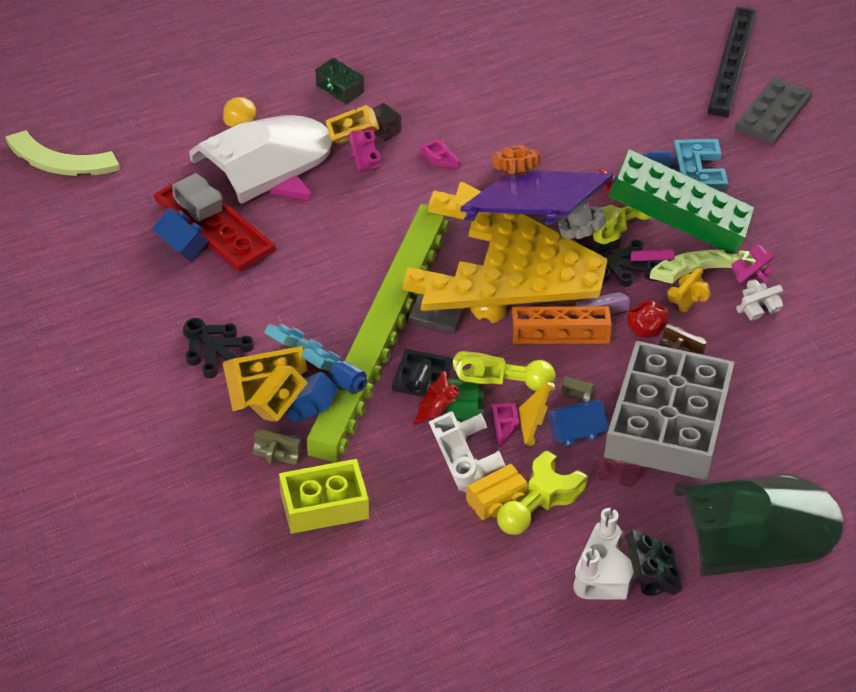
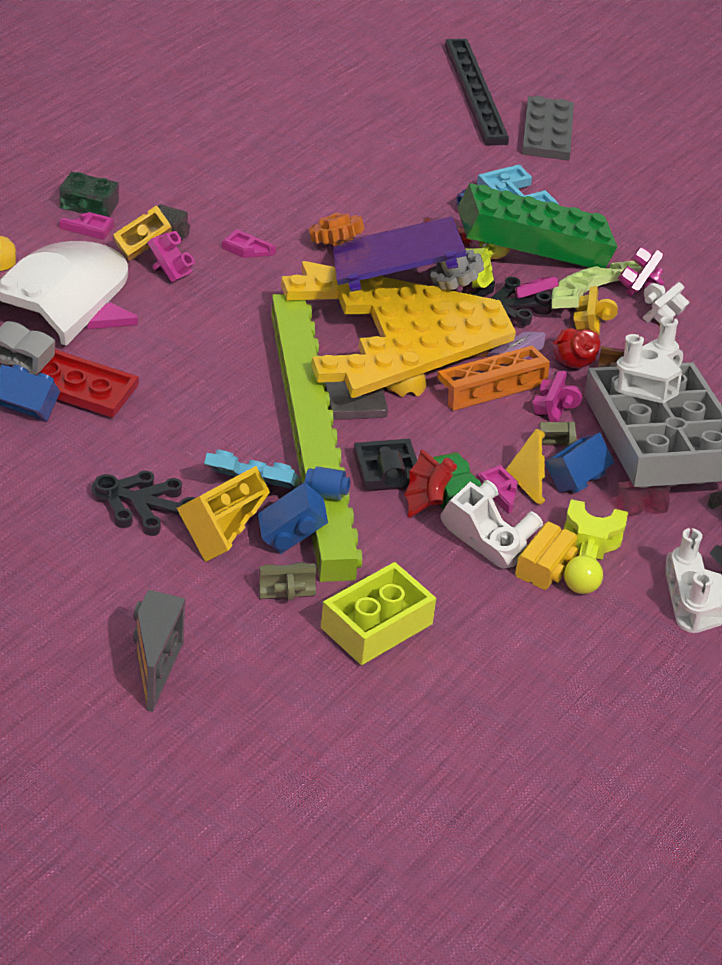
camera: 30 degrees left, 5 degrees down
(140, 467) = (158, 640): none -> dark grey slope
(277, 393) = (262, 521): yellow brick -> none
(327, 106) = (89, 224): none -> dark pink tile
(491, 369) = (506, 431): neon yellow piece -> none
(604, 357) = (556, 397): none -> dark pink hips
(676, 359) = (651, 369): none -> white piece

